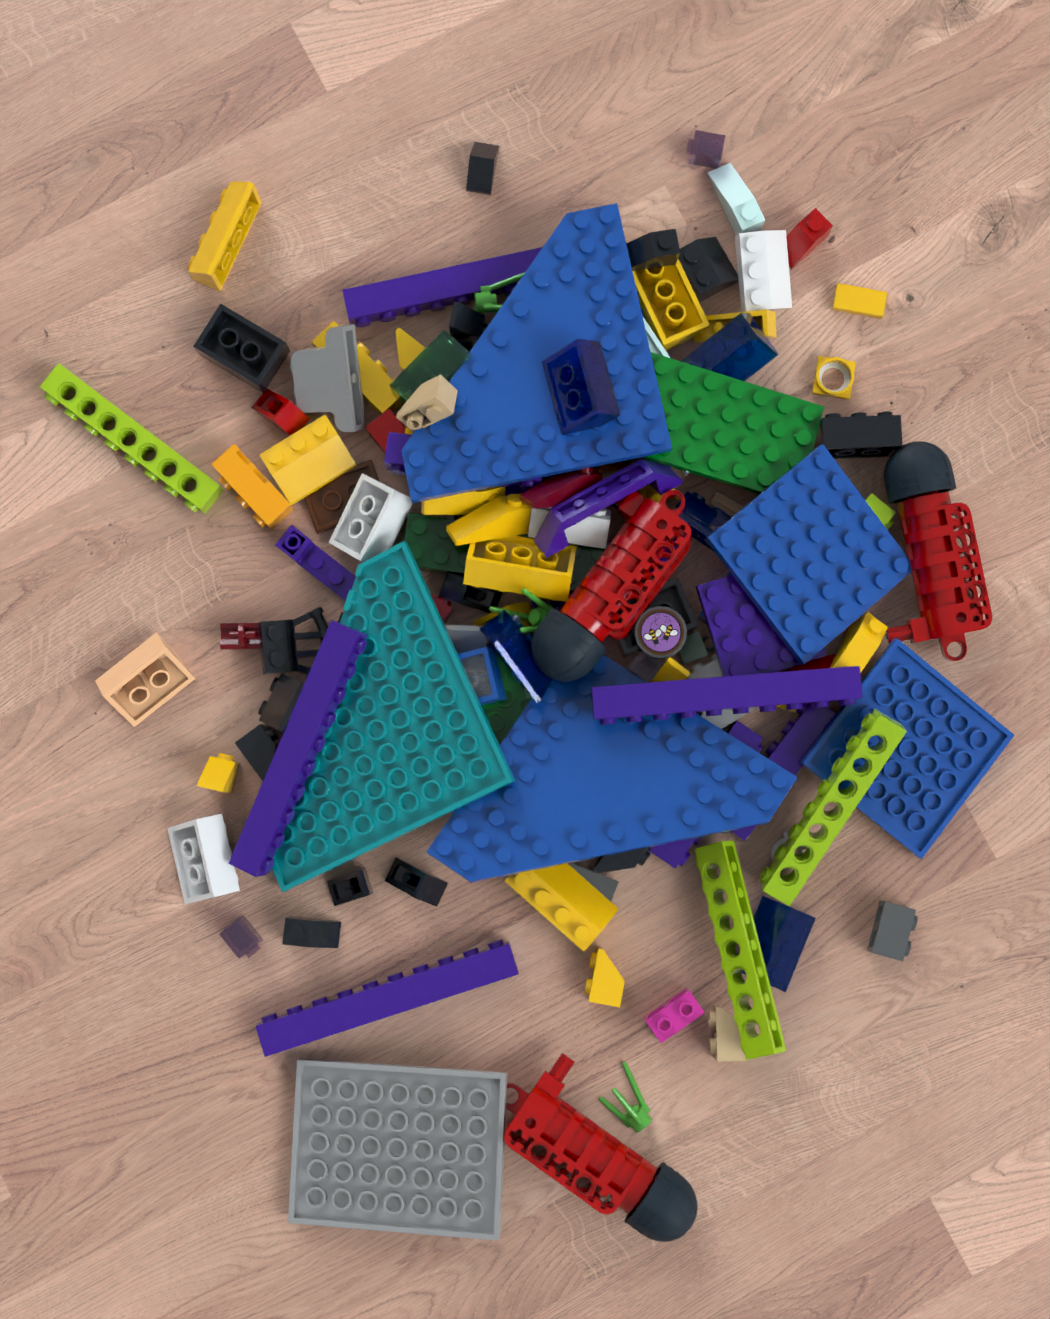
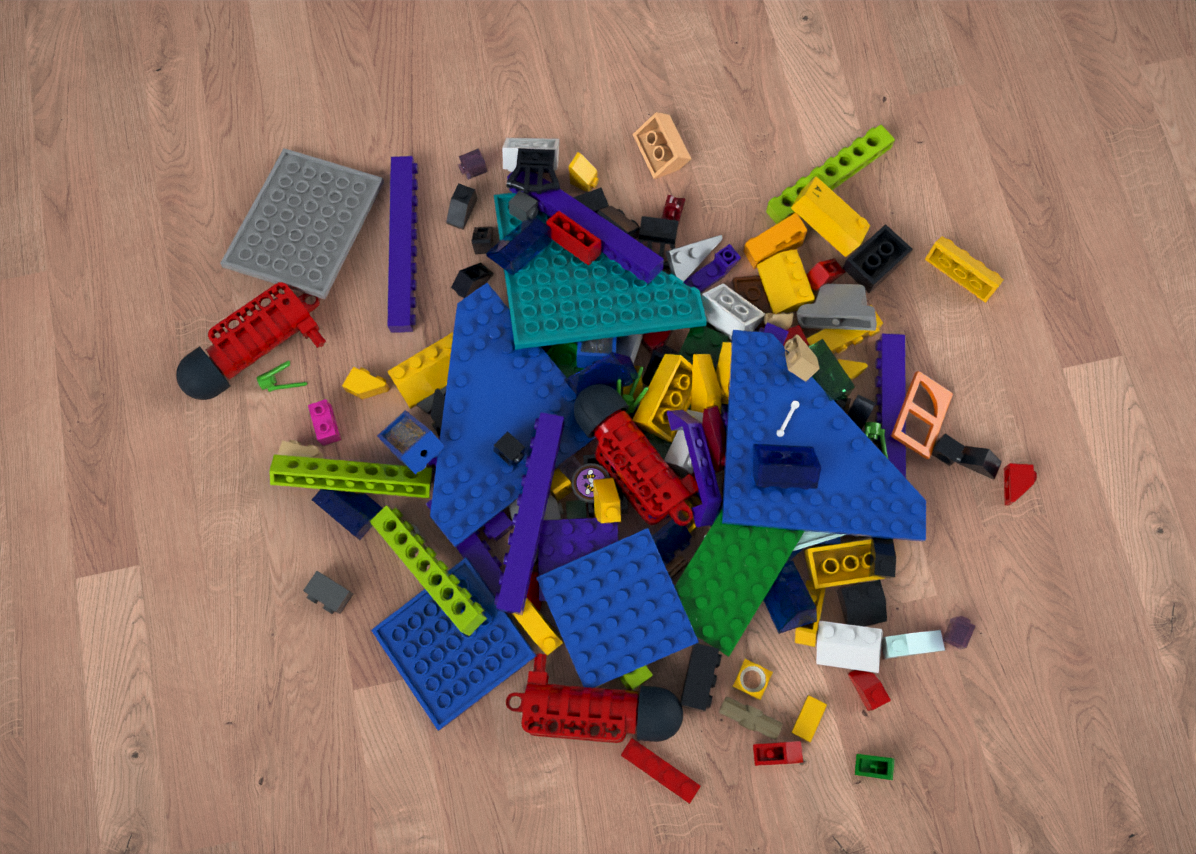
camera: 110 degrees right, 10 degrees down
(202, 419) = (830, 216): none -> yellow brick
(224, 842) = (534, 161): none -> black plate
(296, 839) = (523, 206): none -> dark grey brick
(305, 596) = (688, 257): none -> light grey wing
(329, 752) = (574, 238): none -> red brick
(357, 825) = (521, 245): none -> clear blue slope
(367, 453) = (780, 320): none -> tan hair
(413, 230) = (941, 399): none -> window
(480, 207) = (948, 450): none -> black brick
(494, 397) = (794, 405): none -> white hinge
(498, 116) = (1017, 481): none -> red slope
(653, 745) = (509, 449): none -> black brick
(676, 883) = (411, 442): none -> blue brick
(683, 603) = (606, 501): none -> yellow slope
(881, 367) = (750, 718): none -> dark tan piece
(893, 211) = (874, 766): none -> green slope
(912, 325) = (778, 753): none -> red slope
(974, 455) = (660, 770): none -> red plate

